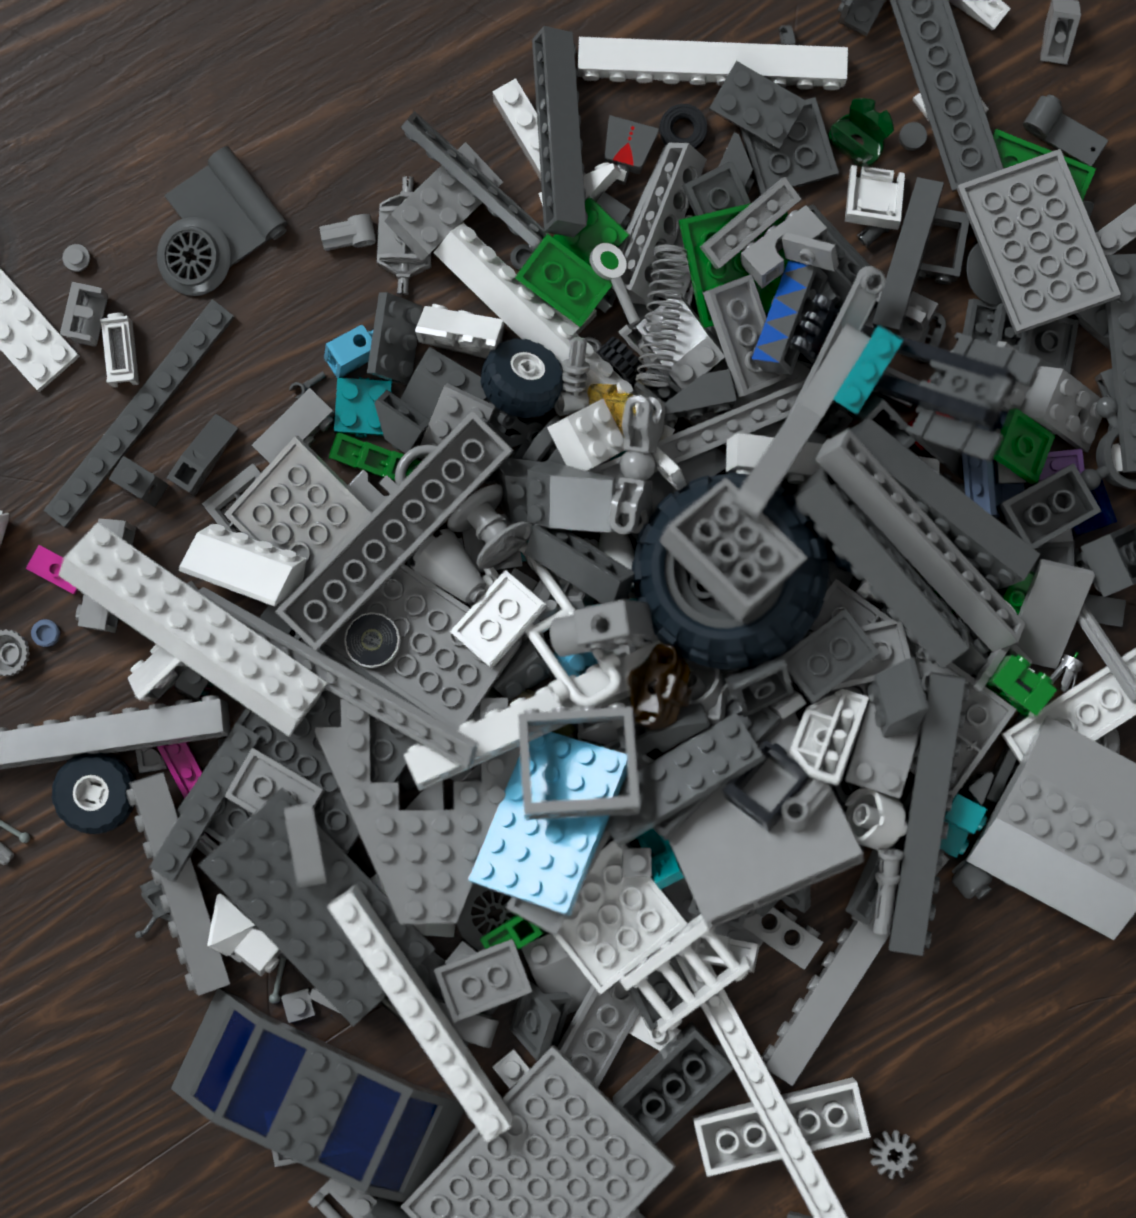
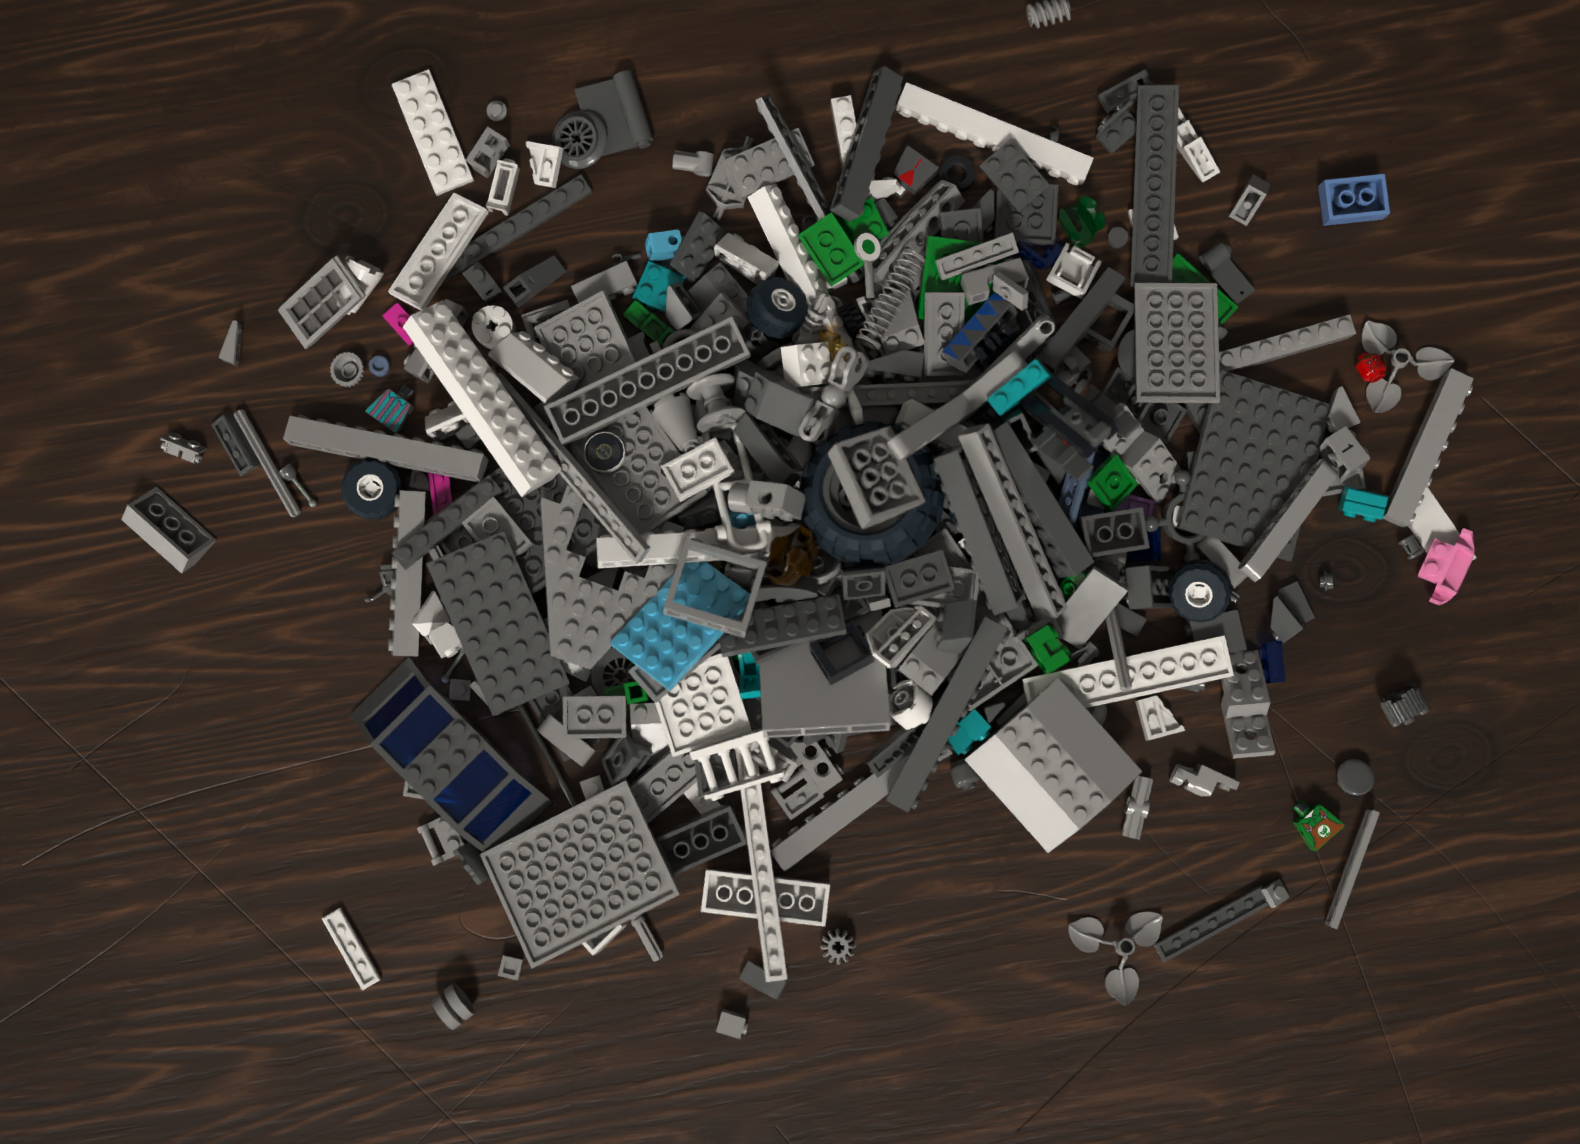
camera: 20 degrees right, 0 degrees up
(67, 462) = (438, 251): none -> white plate
(83, 682) = (392, 409): none -> torso
(157, 531) = (483, 322): none -> white brick
(161, 301) = (545, 163): none -> white wing
(304, 845) = (504, 576): light grey beam -> none
(421, 1013) = (543, 722): white brick -> none
(636, 862) = (731, 673): light grey plate -> none
(777, 986) = (800, 799): none -> light grey plate
(806, 801) = (864, 673): light grey piece -> none
(837, 188) = (1038, 261): none -> clear blue bracket
(888, 879) = (903, 749): light grey pin -> none

